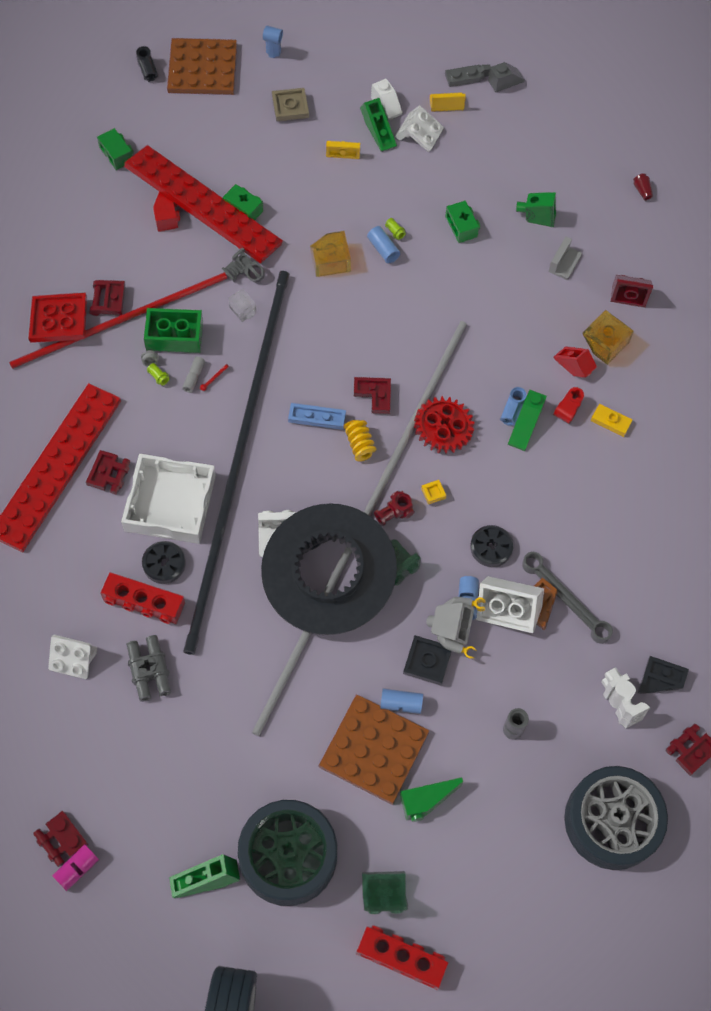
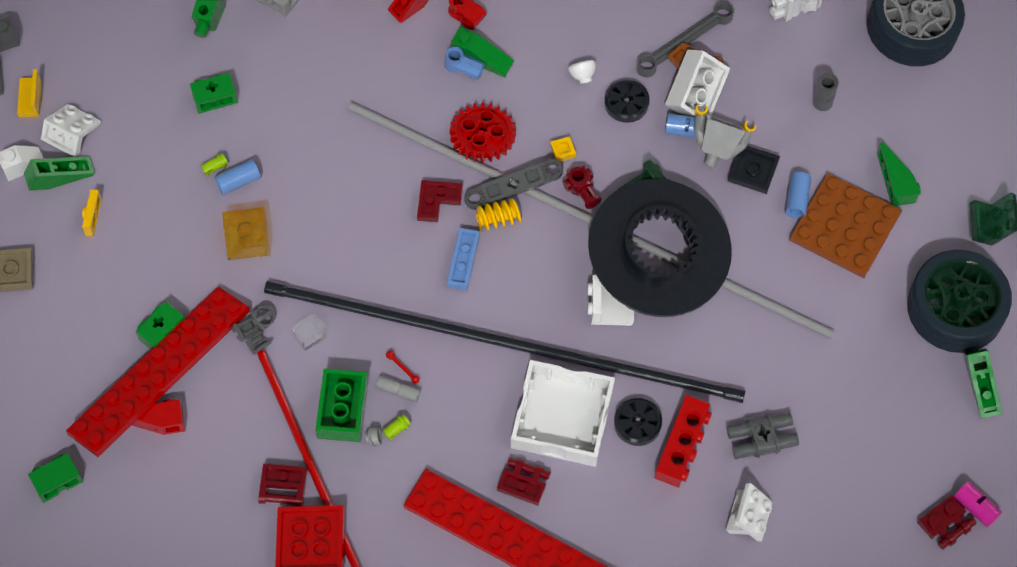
camera: 85 degrees left, 0 degrees up
(397, 461) = (528, 179): none -> dark grey piece
(518, 505) = (583, 71): none -> white brick

